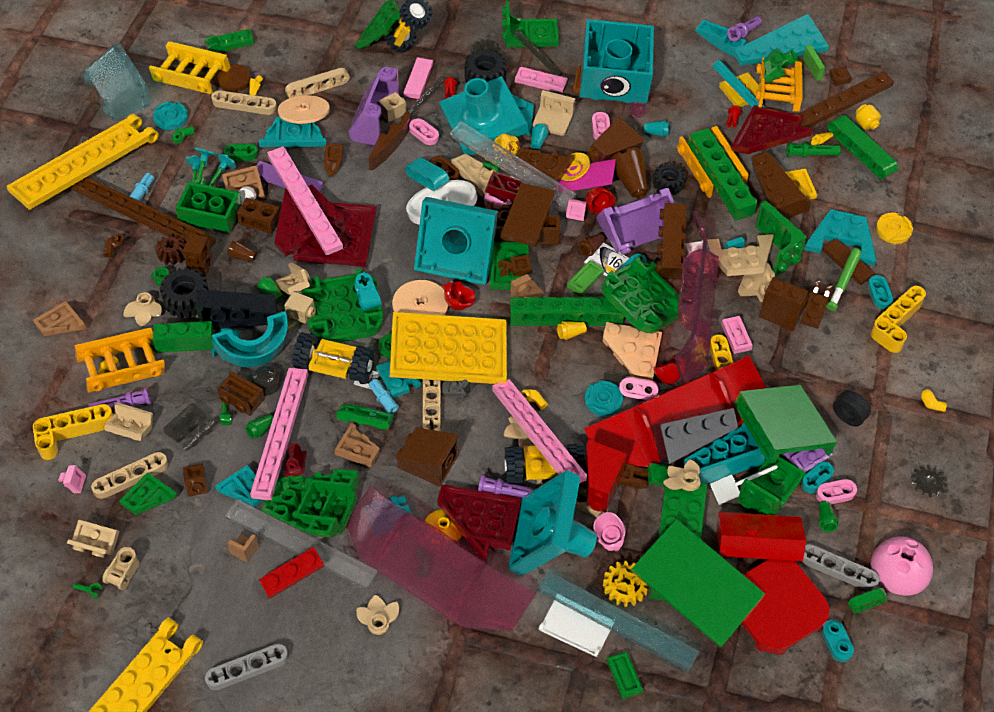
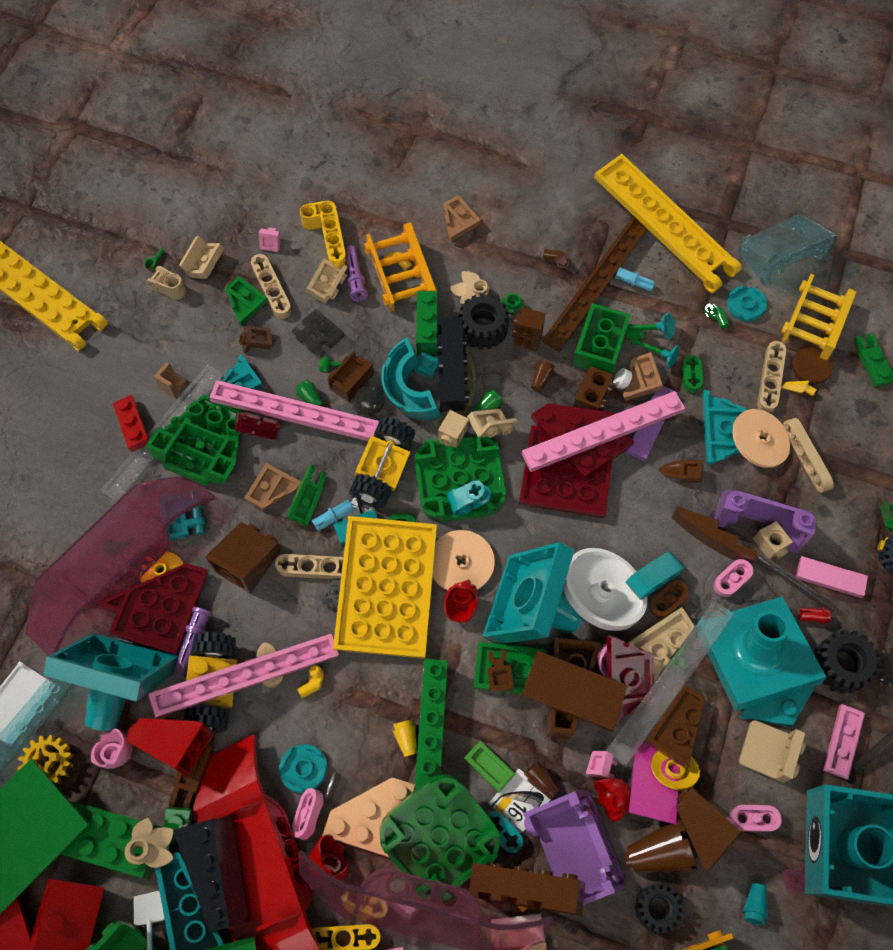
camera: 95 degrees right, 10 degrees up
(170, 249) = (547, 304): copper gear -> none
(245, 663) = (48, 386): light grey beam -> none
(378, 613) = (75, 502): tan plate -> none
(508, 142) = (709, 680): yellow head -> none
(525, 287) = (461, 679): medium nougat wing -> none
(538, 136) = (732, 726): teal cone -> none

